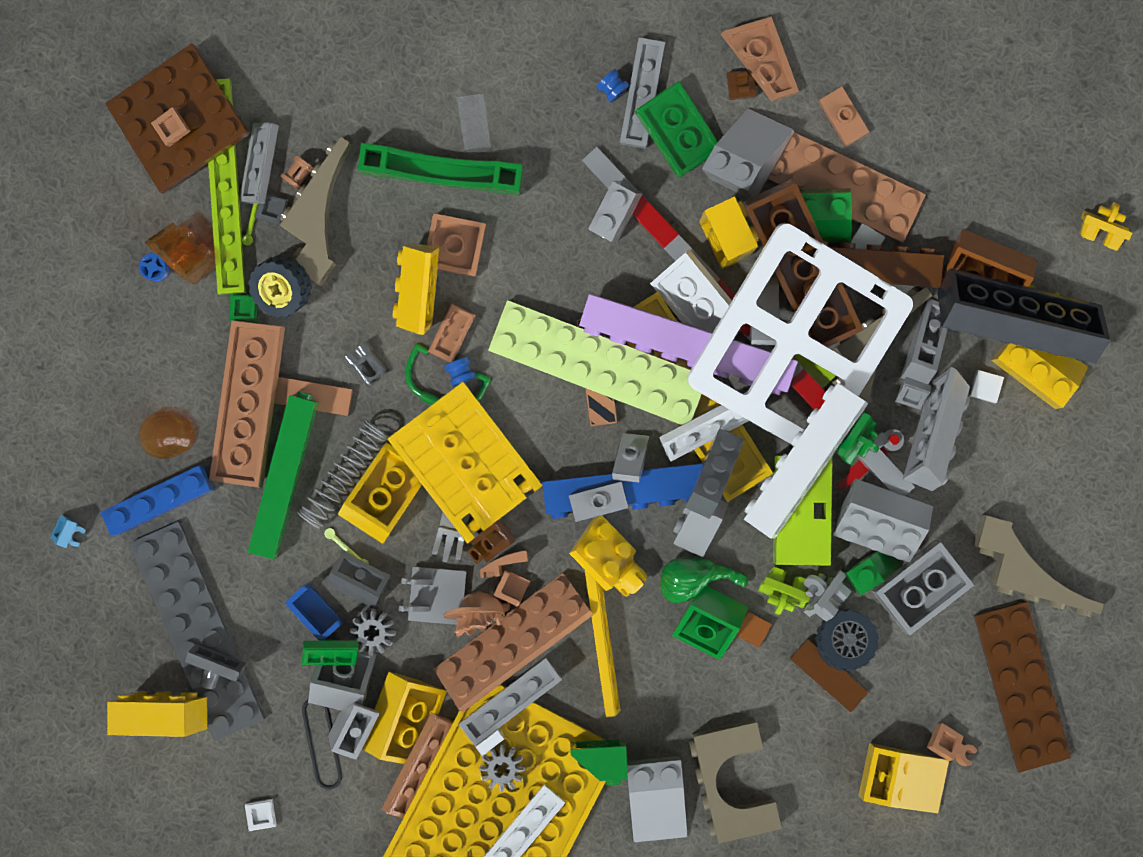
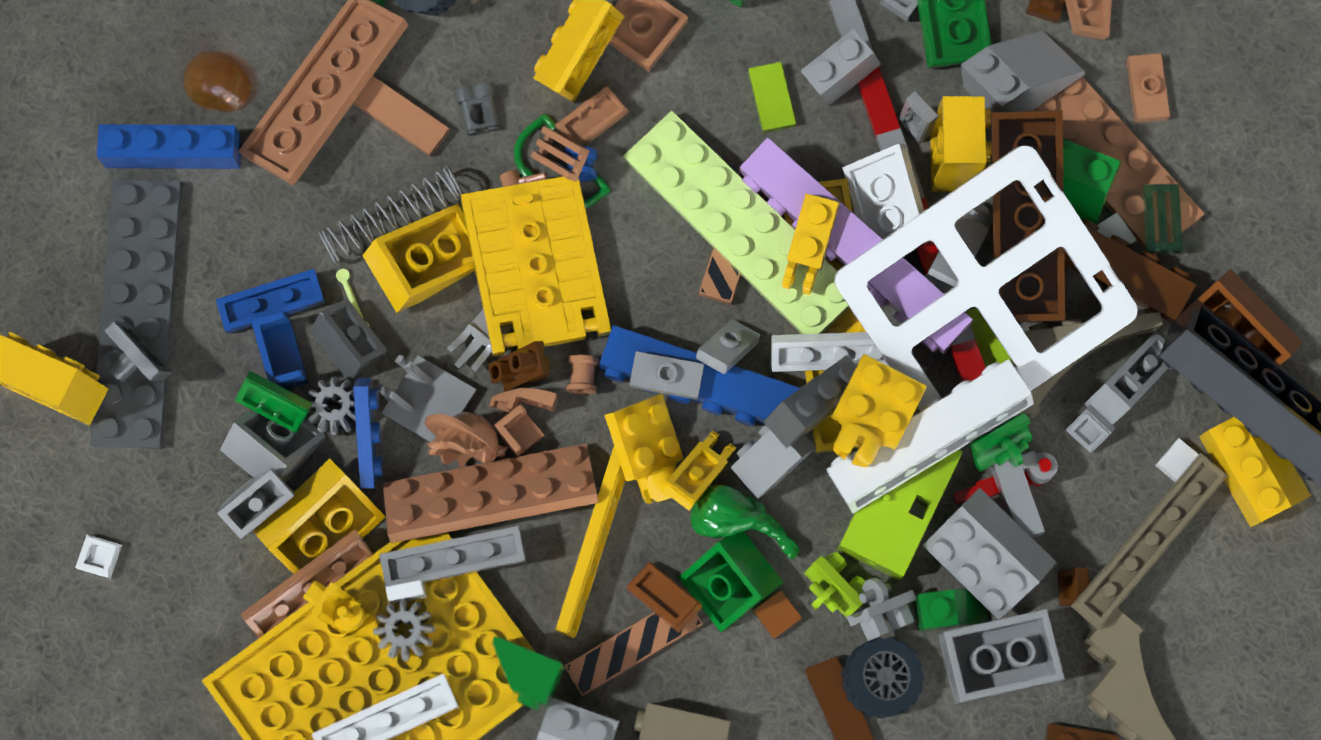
camera: 25 degrees right, 10 degrees down
(63, 531) = (48, 132): dark azure tile -> none
(283, 475) = (323, 184): green brick -> none
(288, 578) = (286, 294): none -> blue plate
(312, 750) = (196, 509): black piece -> none
(407, 642) = (367, 432): none -> blue plate
(416, 407) = (513, 178): none -> nougat hand
(440, 382) = (546, 146): none -> nougat tile
(447, 777) = (335, 607): none -> yellow hips
(536, 525) = (582, 374): none -> nougat bush
(574, 254) = (771, 97): none -> lime tile
(652, 559) = (697, 471): none -> yellow hinge
(655, 356) = (810, 240): none -> yellow hinge
(663, 698) = (624, 651): none -> tile
(669, 656) = (664, 597): none -> dark orange tile
(689, 223) = (917, 117): none -> light grey plate
(759, 464) = (874, 410): none -> yellow plate
(888, 219) = (1163, 246): none -> clear green tile
(937, 431) = (1101, 479): light grey slope -> none
(953, 512) = (1071, 584): none -> reddish brown tile
(990, 456) = (1149, 541): none -> dark tan tile

